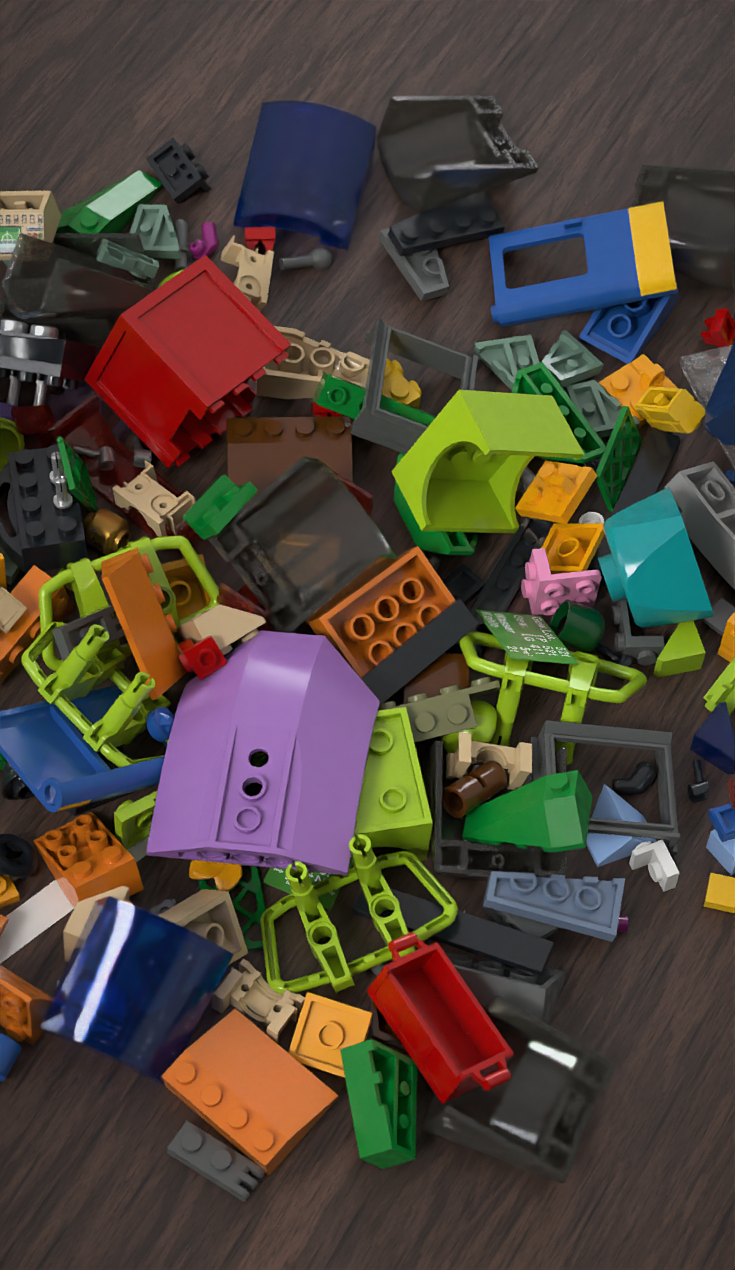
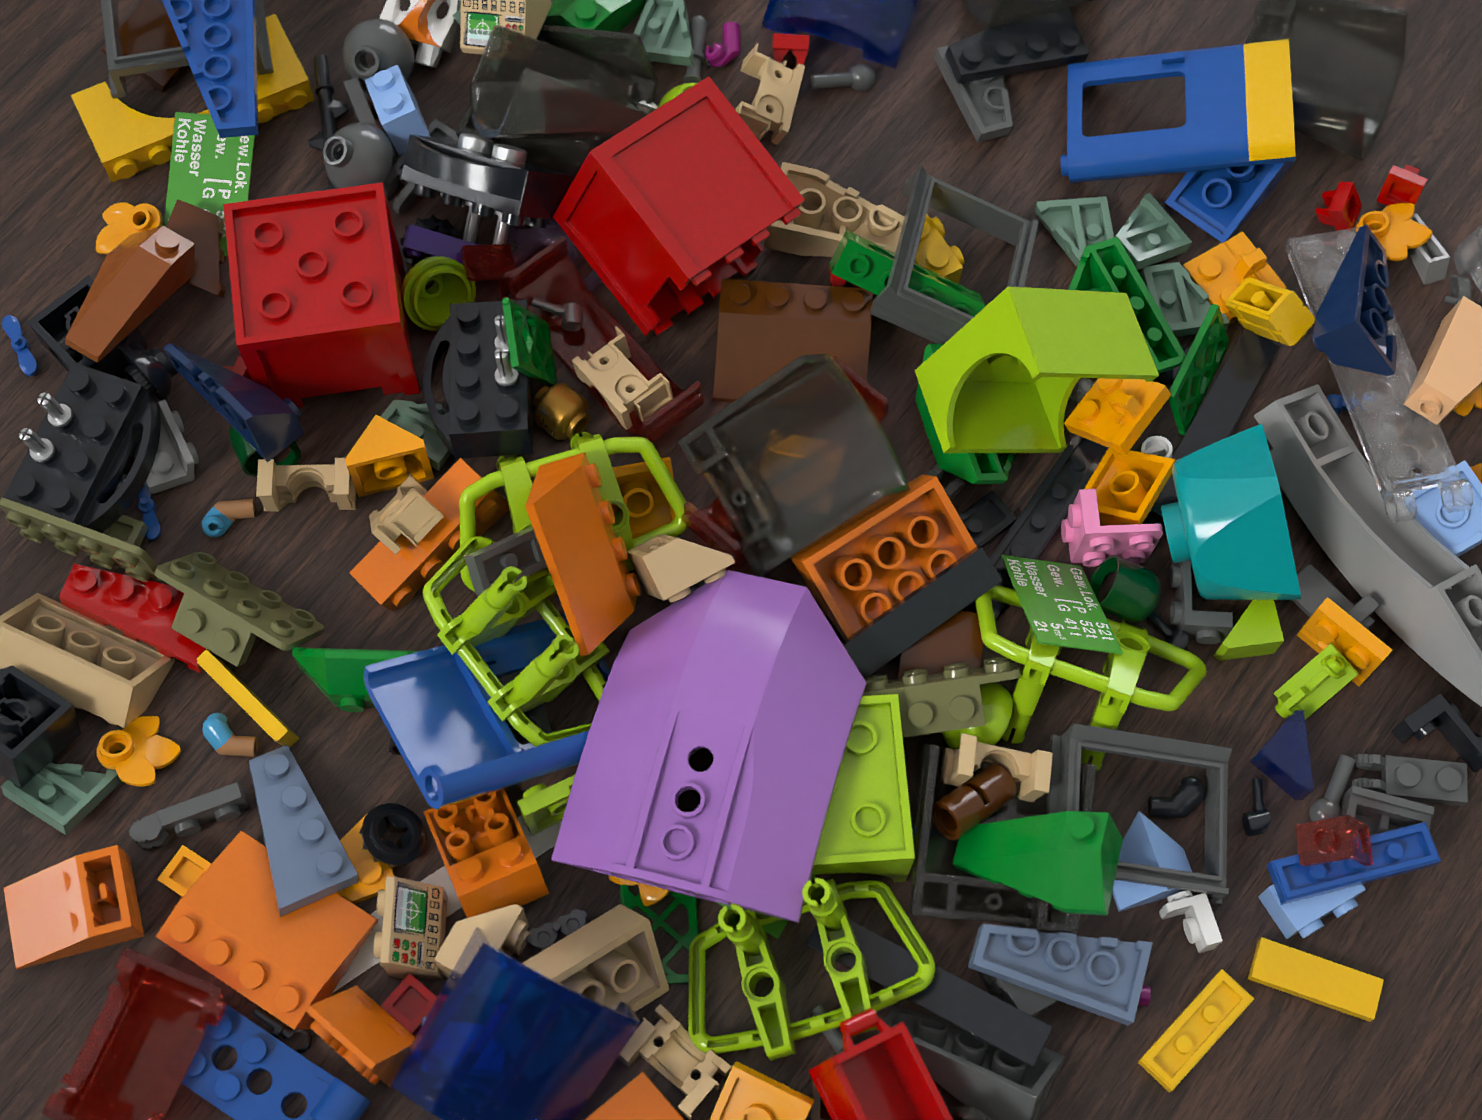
camera: 10 degrees right, 10 degrees up
(37, 921) = (411, 928): none -> tan slope
(44, 974) = (410, 1004): none -> red tile
(124, 258) = (622, 66): sand green wing -> none
(140, 454) = (615, 316): flat silver hand -> none
(160, 723) = (589, 683): blue tile -> none
(201, 657) = (650, 602): red bracket -> none
(218, 506) = (694, 401): green bracket -> none
(666, 945) = (1195, 1030): none -> yellow tile

